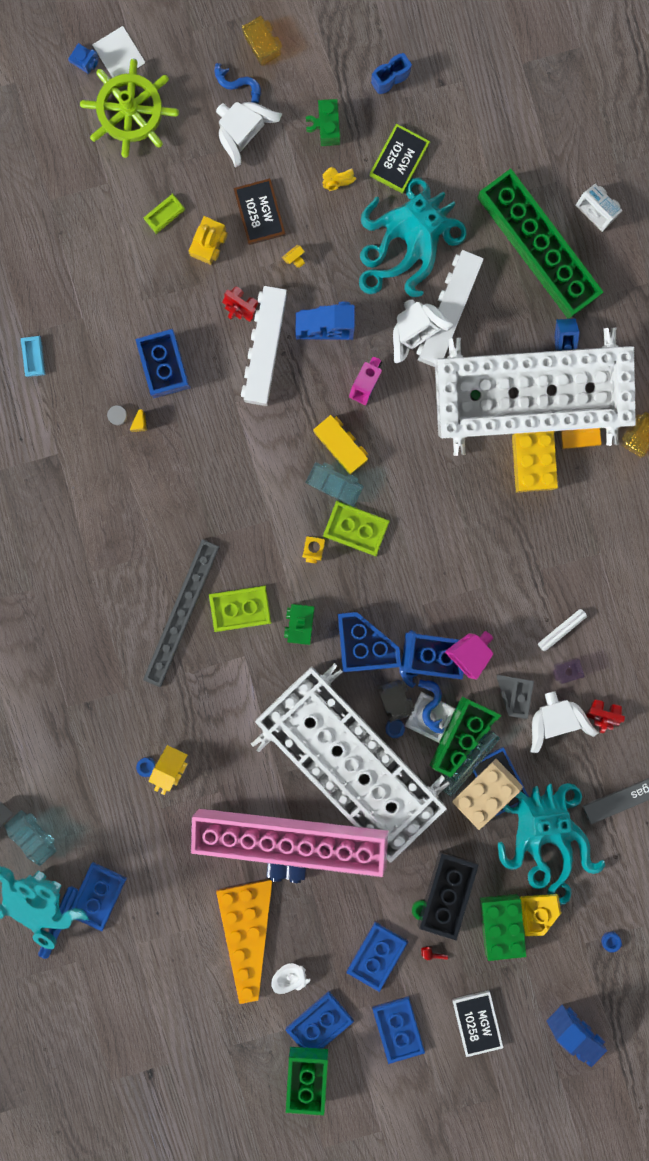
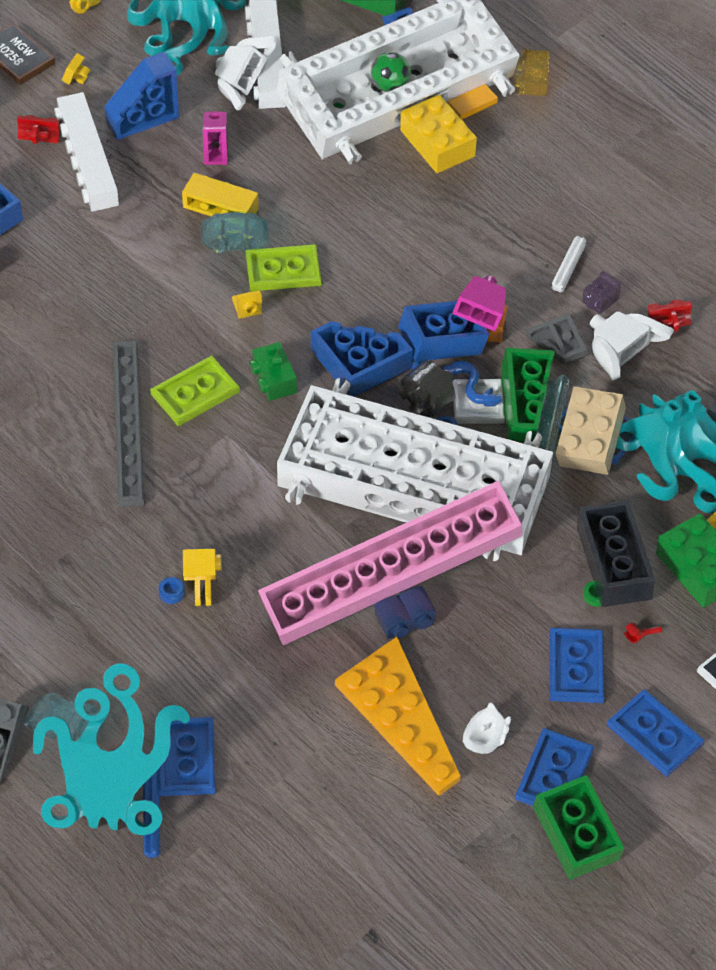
camera: 30 degrees left, 35 degrees down
(525, 396) = (390, 71): none -> green piece

